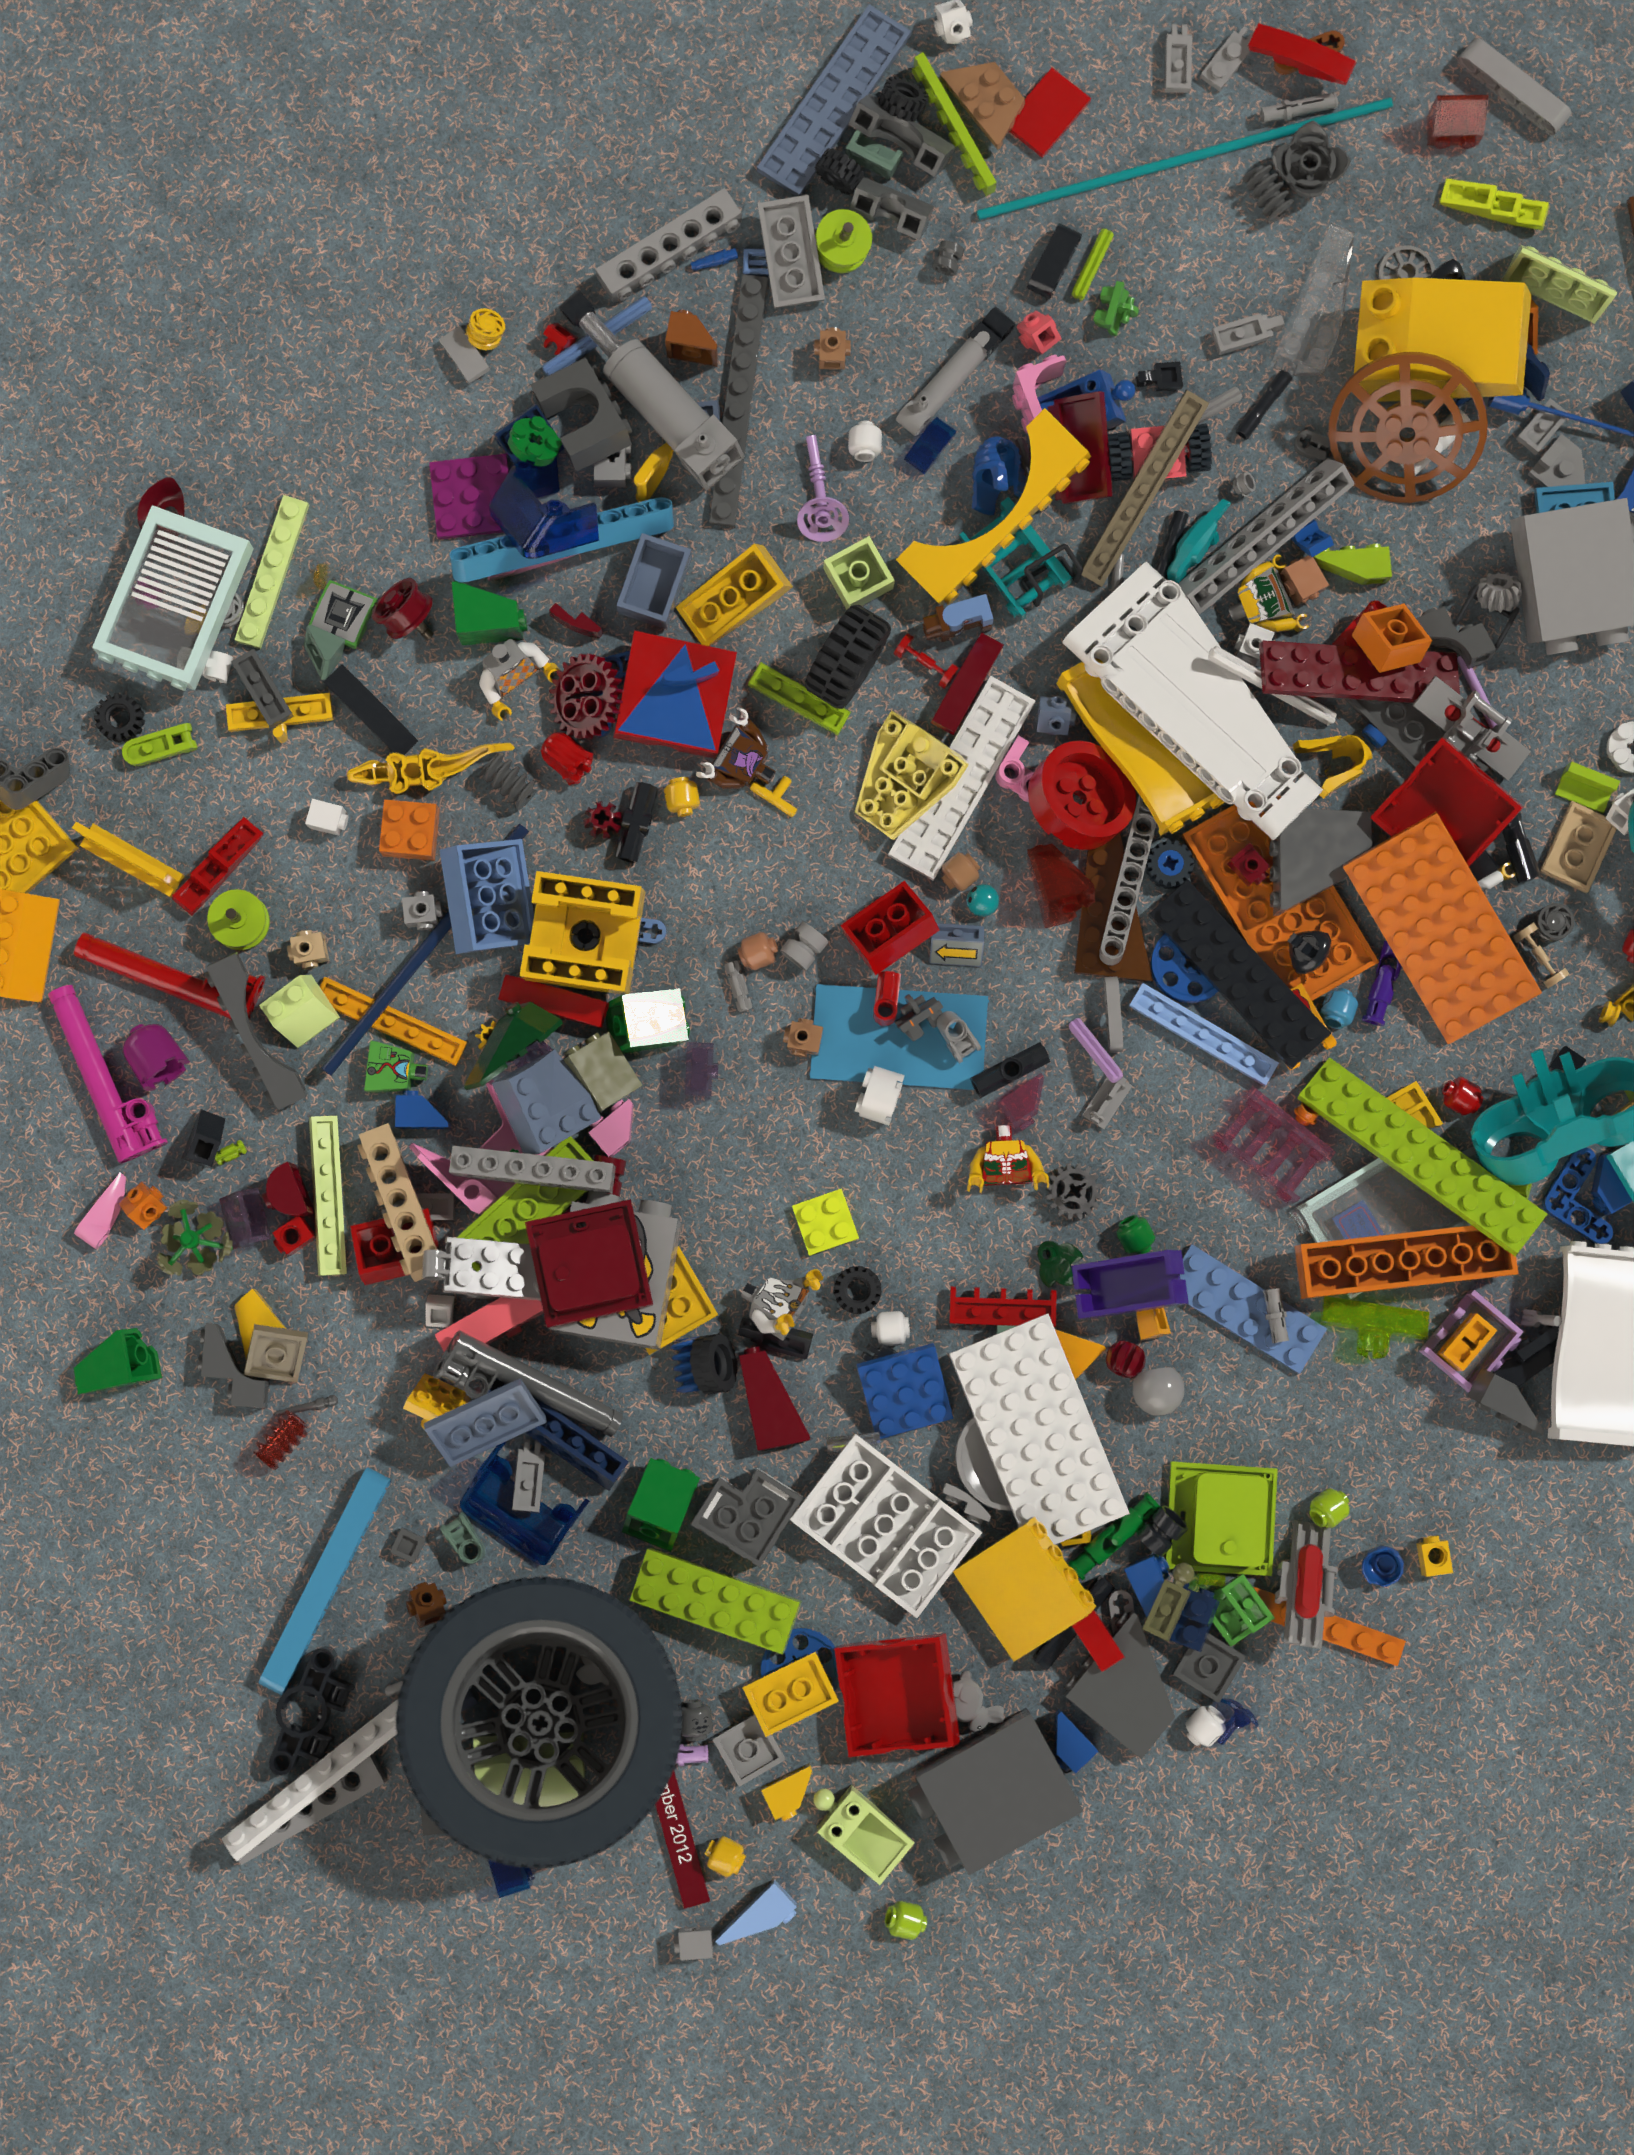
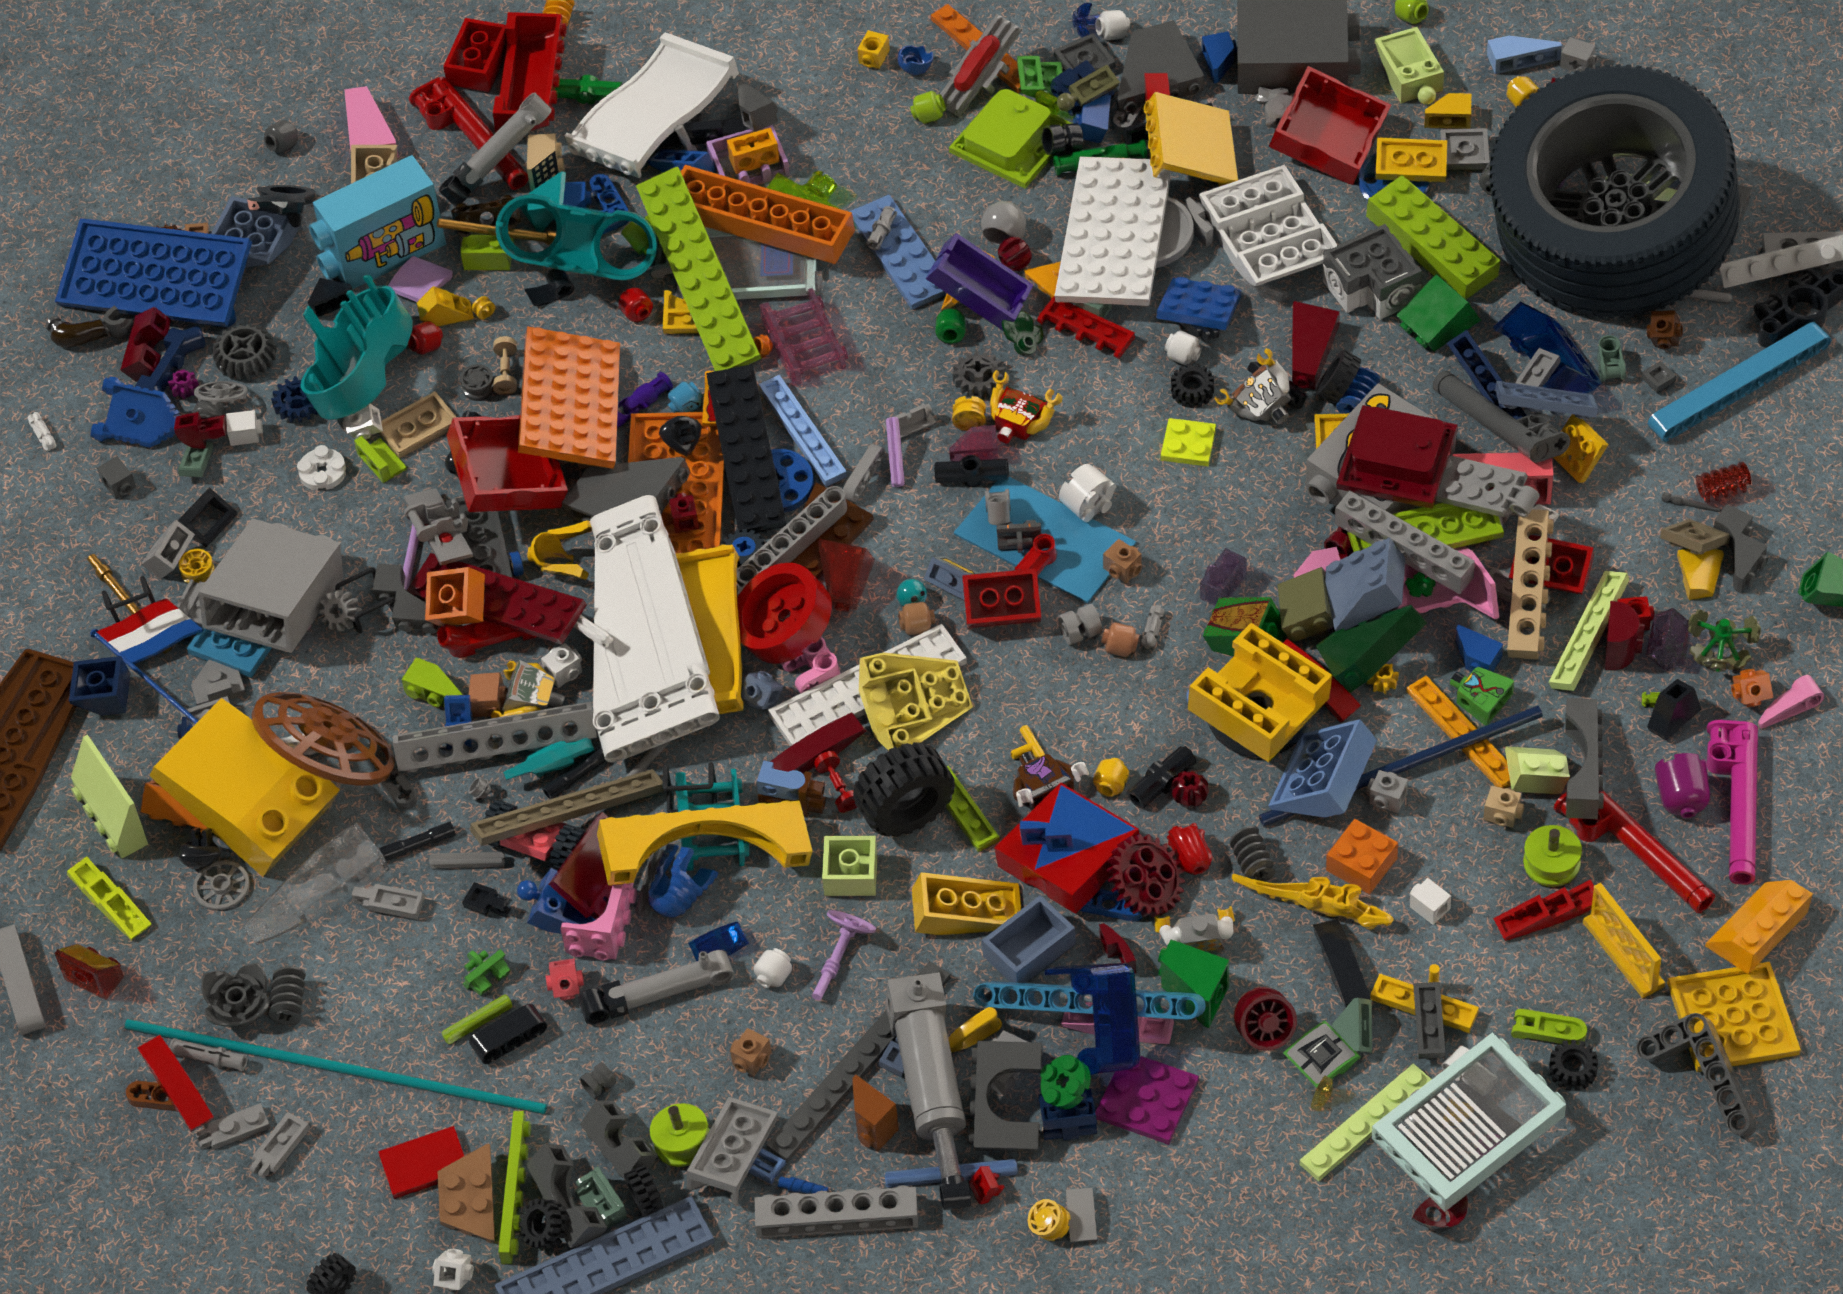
camera: 140 degrees left, 30 degrees down
(1052, 1134) = (968, 413): none -> yellow wheel
(1525, 1296) = (669, 158): none -> blue slope

